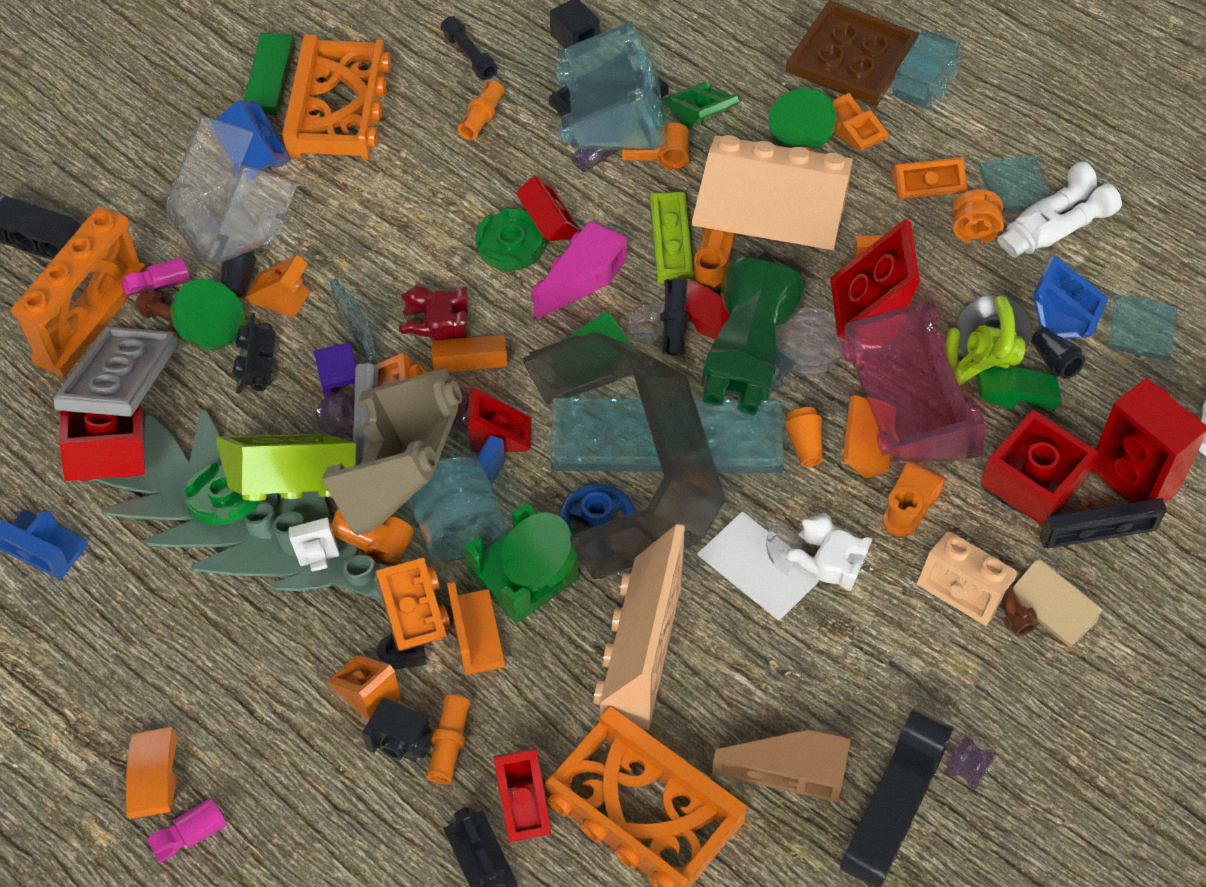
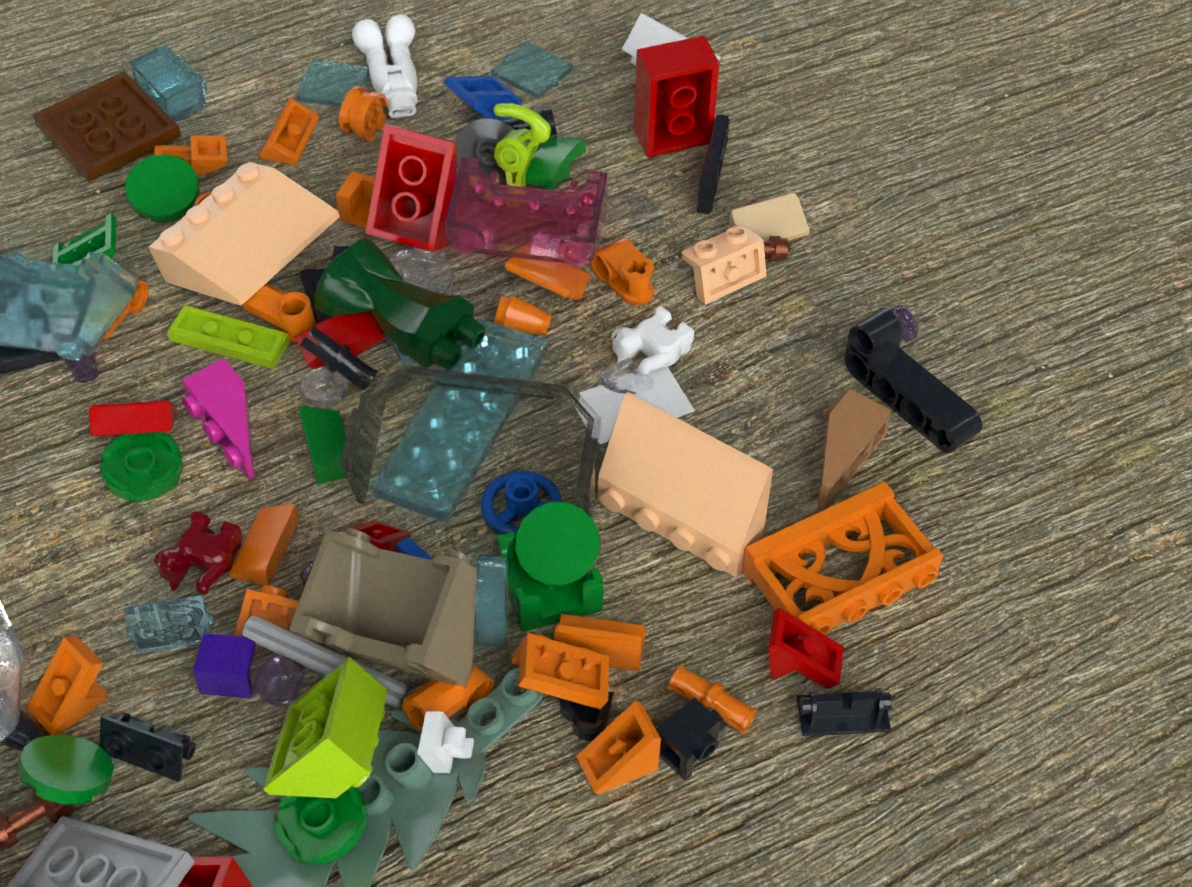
camera: 70 degrees left, 5 degrees down
(1039, 467) = (647, 175): red brick -> none

